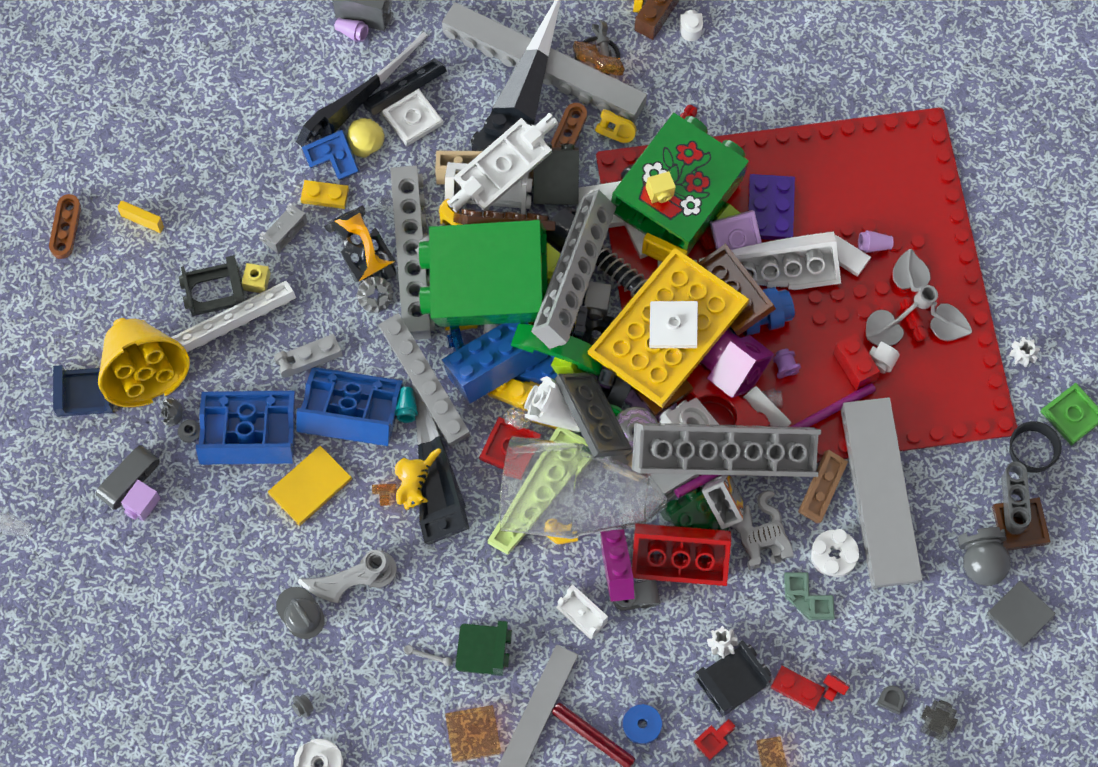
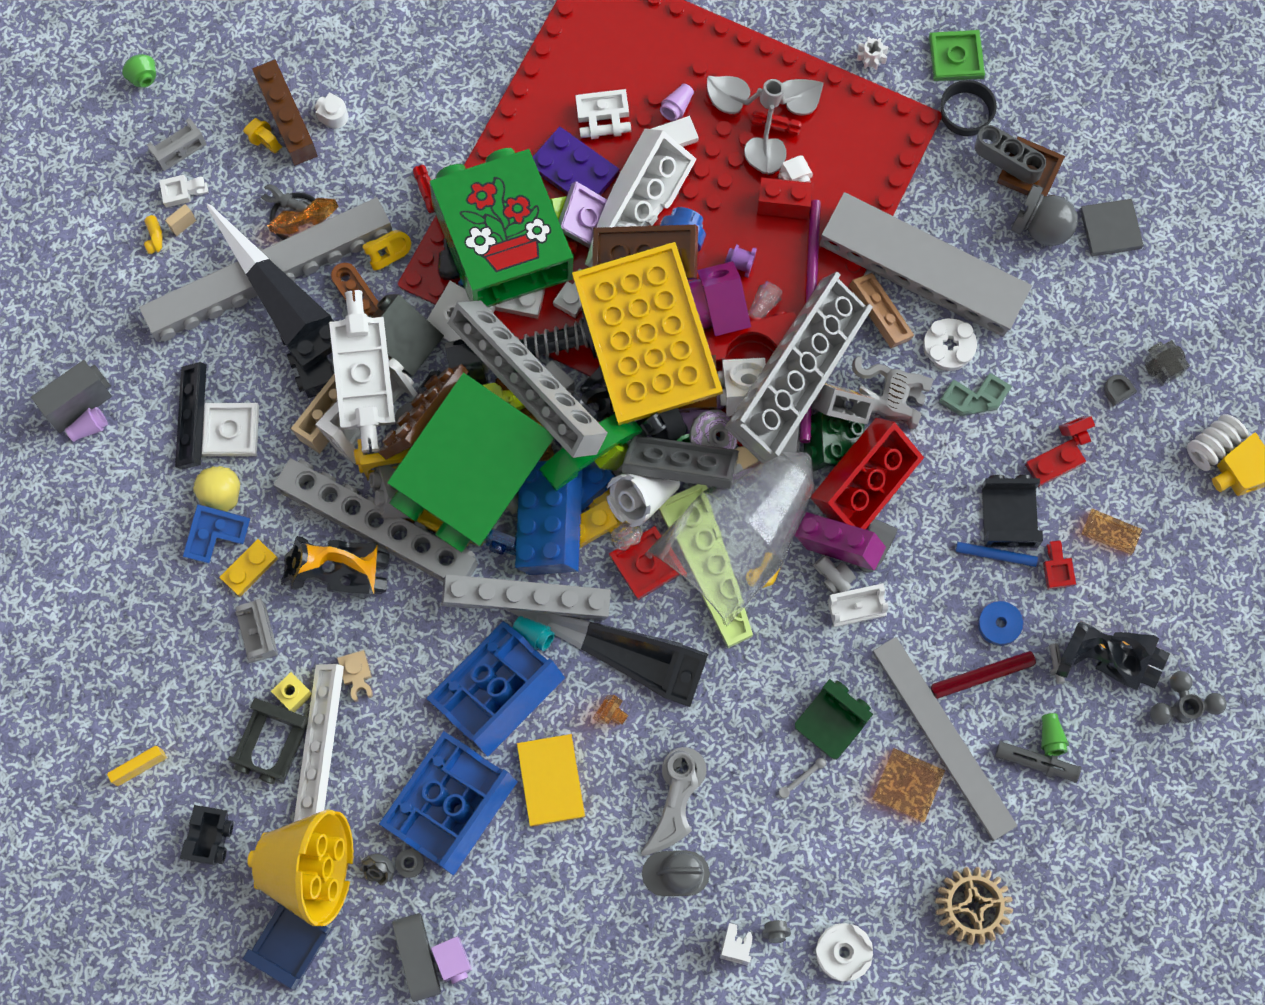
camera: 55 degrees left, 5 degrees up
(64, 218) = (77, 846): dark orange plate -> none
(122, 291) = (207, 836): none -> black cylinder
(268, 678) = (735, 950): none -> white hinge
(298, 309) = (356, 671): none -> tan plate
(308, 356) = (413, 694): light grey plate -> none
(331, 117) = (176, 503): black plate -> none
(367, 288) = (386, 589): light grey gear -> none
(413, 475) = (616, 673): yellow animal -> none
(592, 585) = (837, 578): none -> light grey plate
(658, 248) = (553, 290): yellow tile -> none
(660, 187) = (503, 243): light yellow plate -> none
(673, 324) = (652, 325): white plate -> none
(694, 688) = (996, 554): none -> blue bar
(722, 642) = (965, 497): white gear -> none
(764, 405) = (769, 306): white sticker -> none
(832, 194) = (600, 107): none -> white plate

